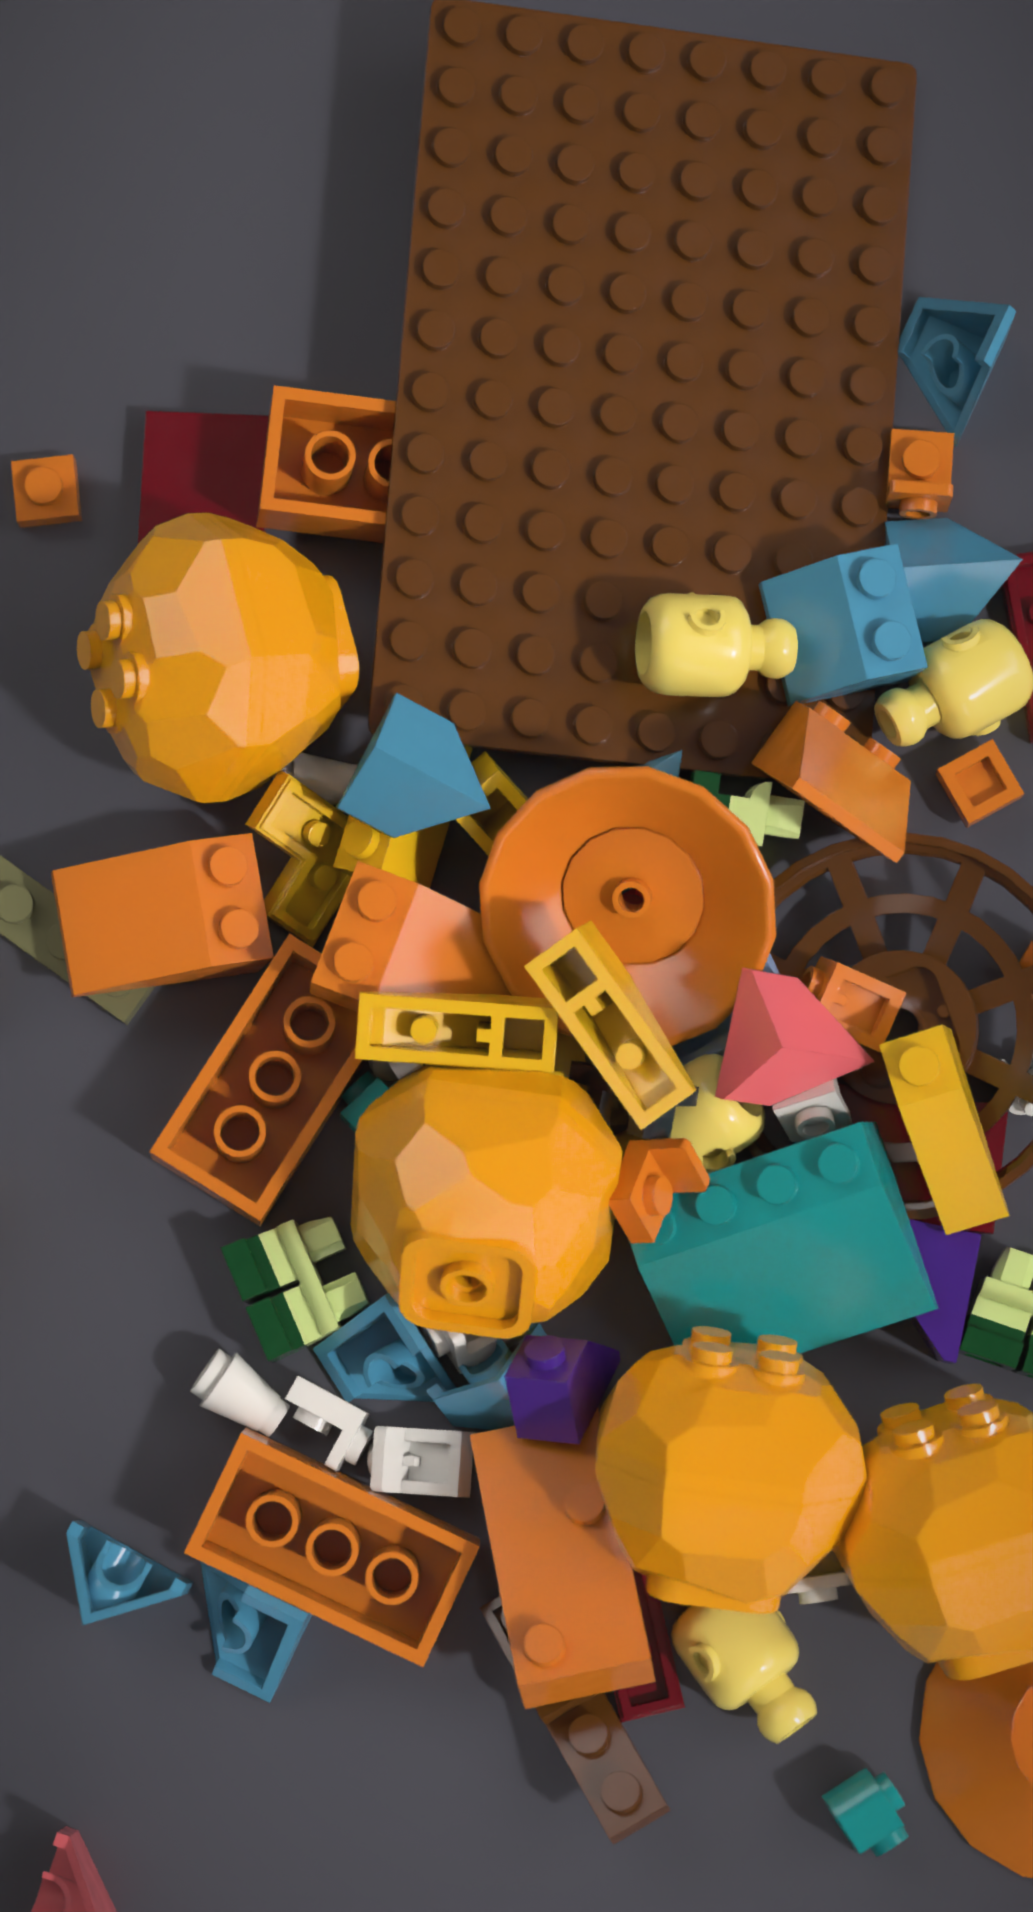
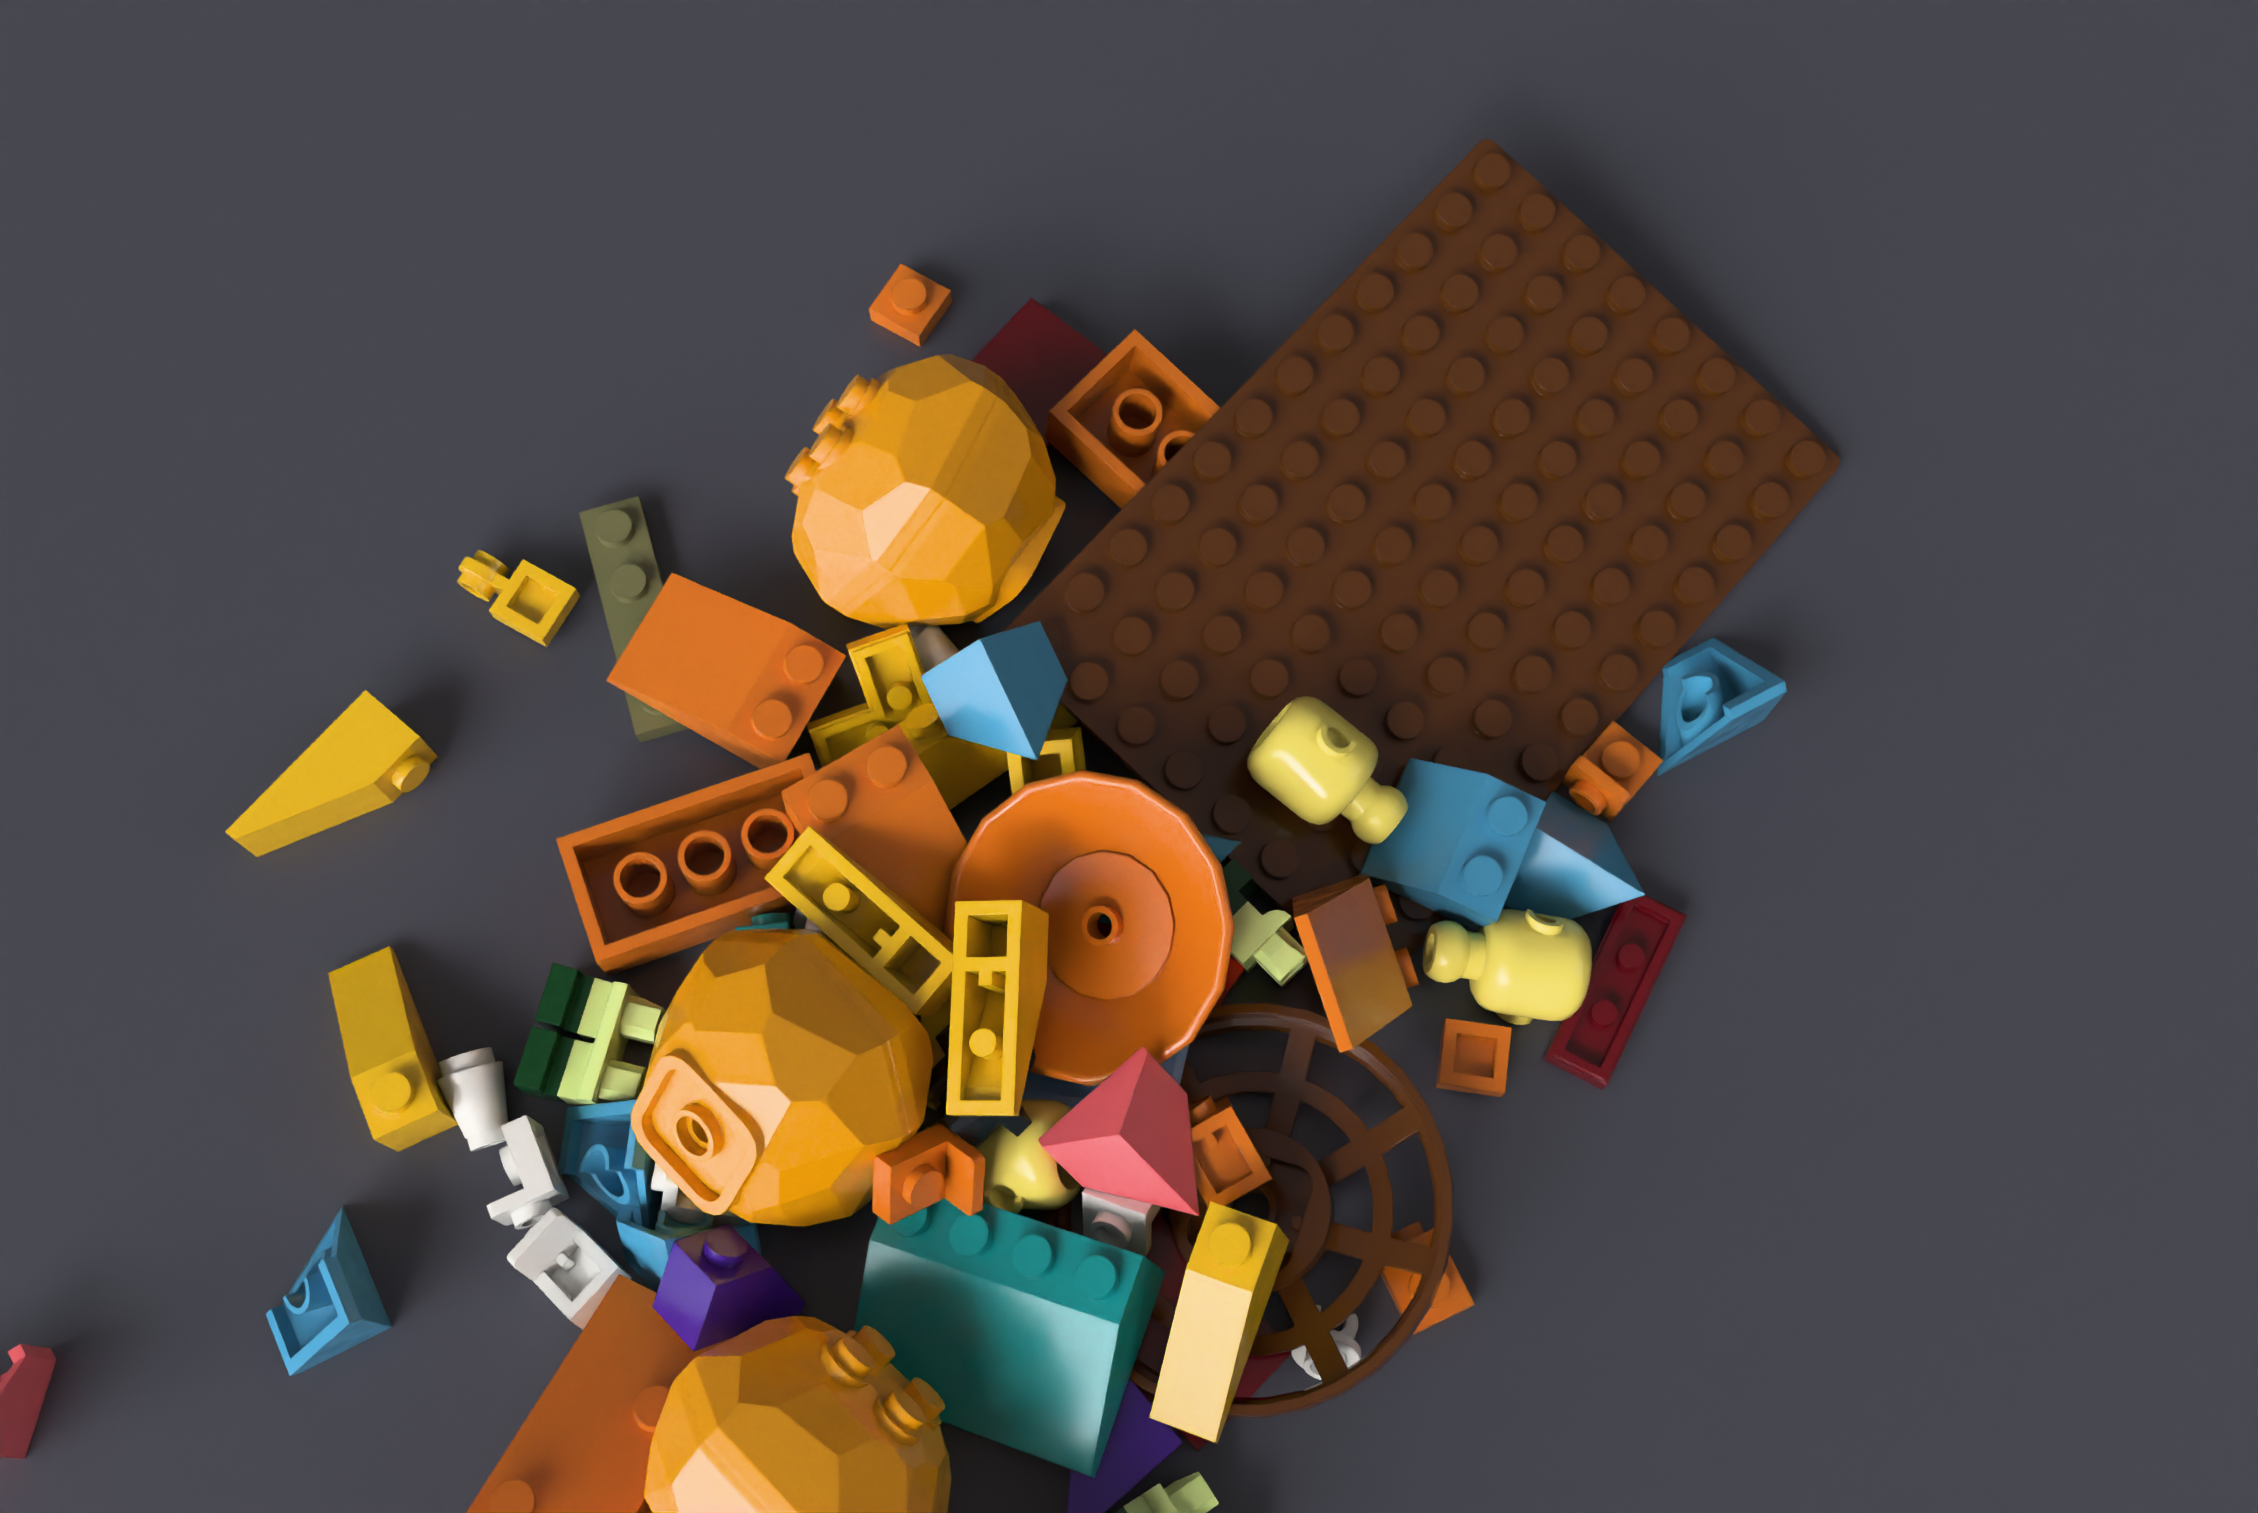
camera: 30 degrees right, 10 degrees down
(115, 1576) = (251, 1165): dark azure slope -> none
(137, 1409) = (388, 1052): none -> yellow slope
(333, 1546) = (437, 1282): orange brick -> none

